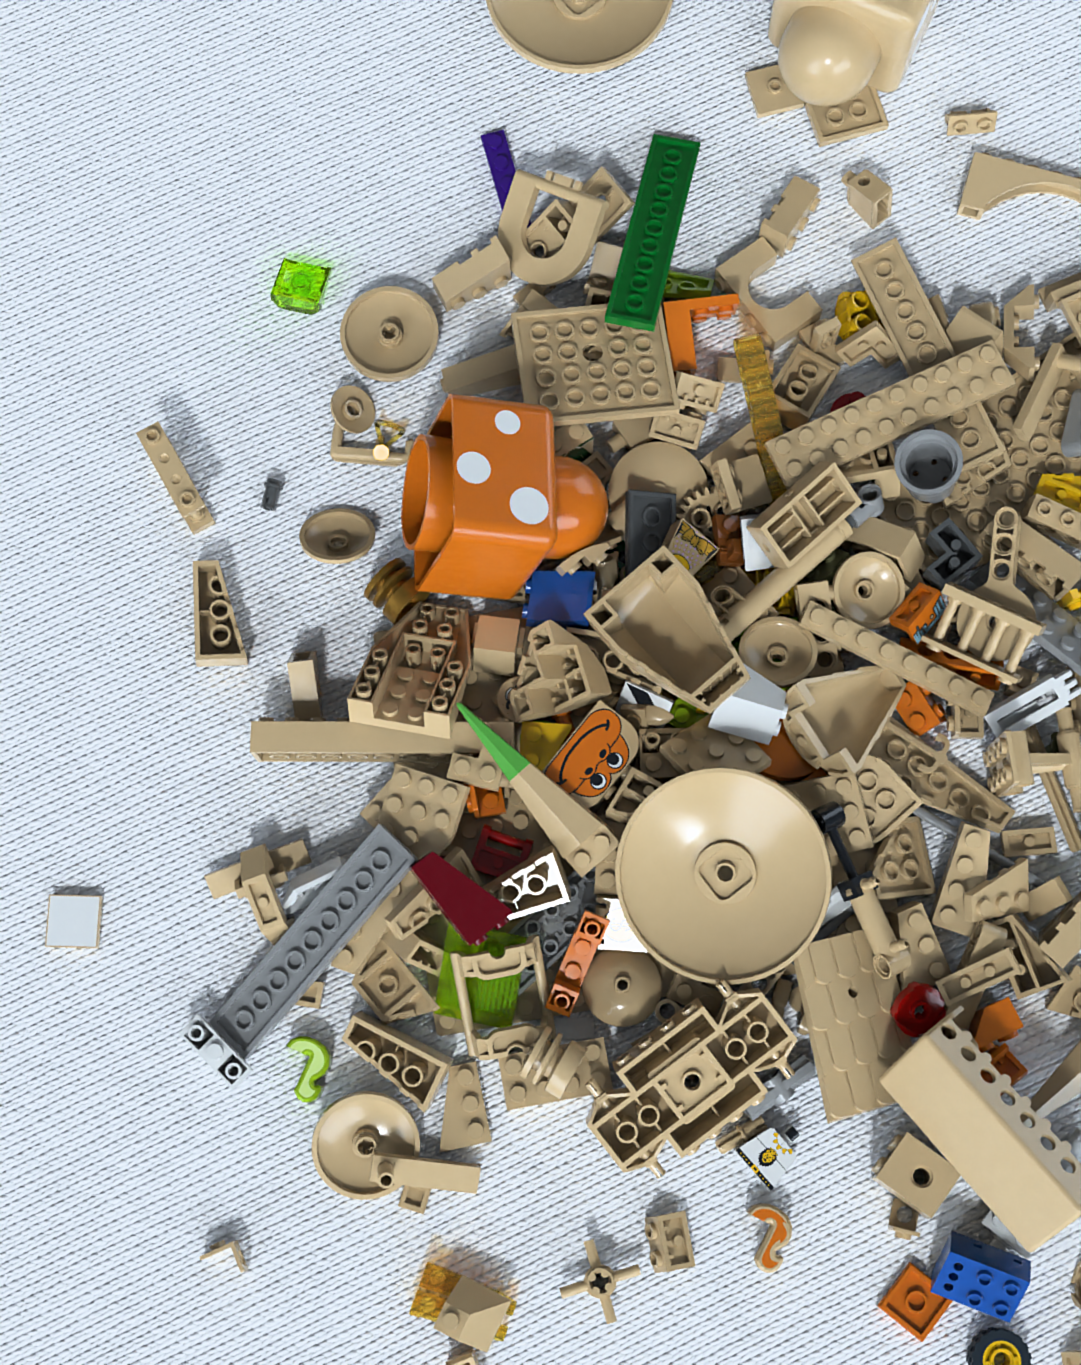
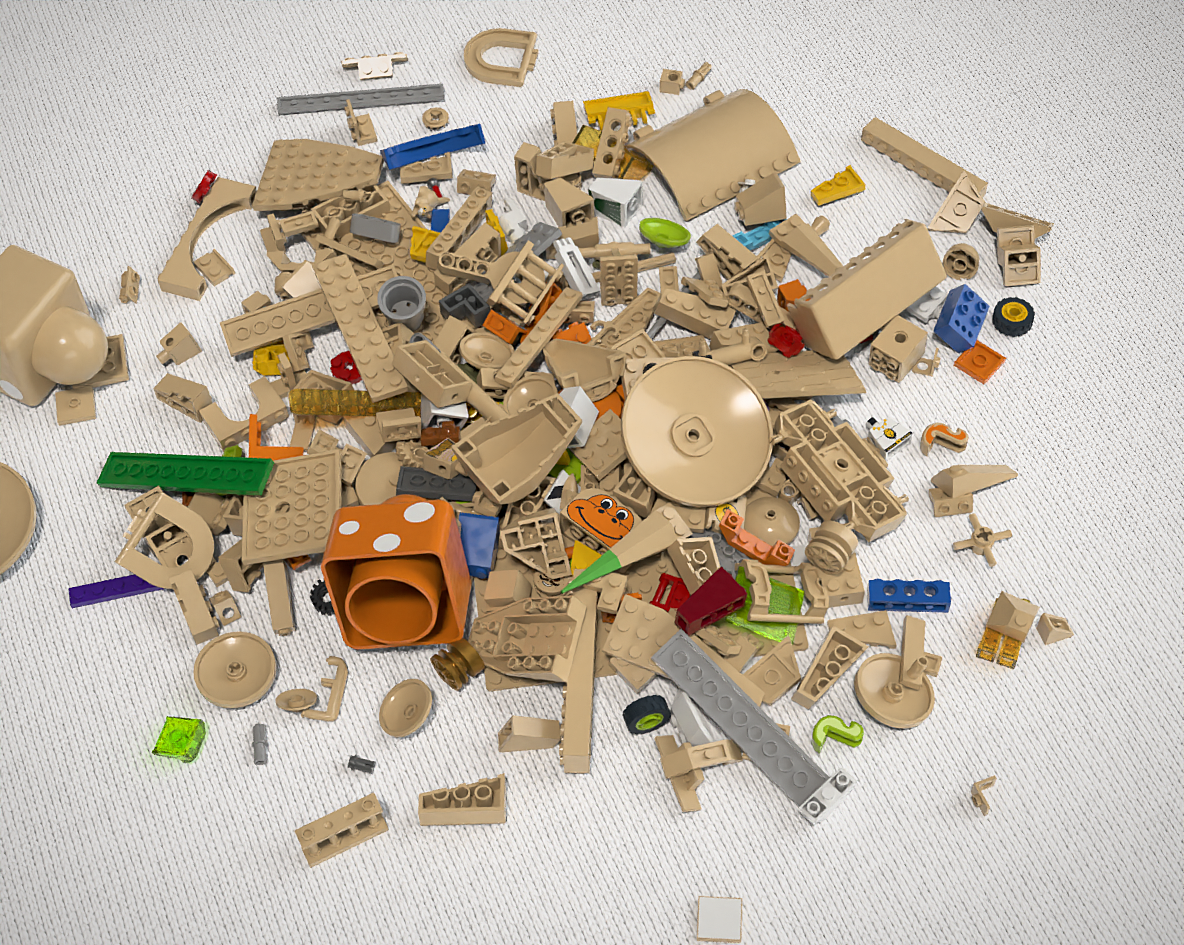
camera: 90 degrees left, 20 degrees down
(298, 376) = (259, 744): none -> light grey axle
(326, 826) = (646, 714): none -> black wheel
(382, 451) = (335, 677): clear yellow piece -> none
(484, 306) = (224, 600): none -> tan bracket
(505, 1215) = (899, 601): none -> blue brick
(700, 1268) = (969, 478): none -> tan wedge
(946, 284) = (255, 302): none -> tan brick
(1012, 223) = (214, 267): none -> tan plate

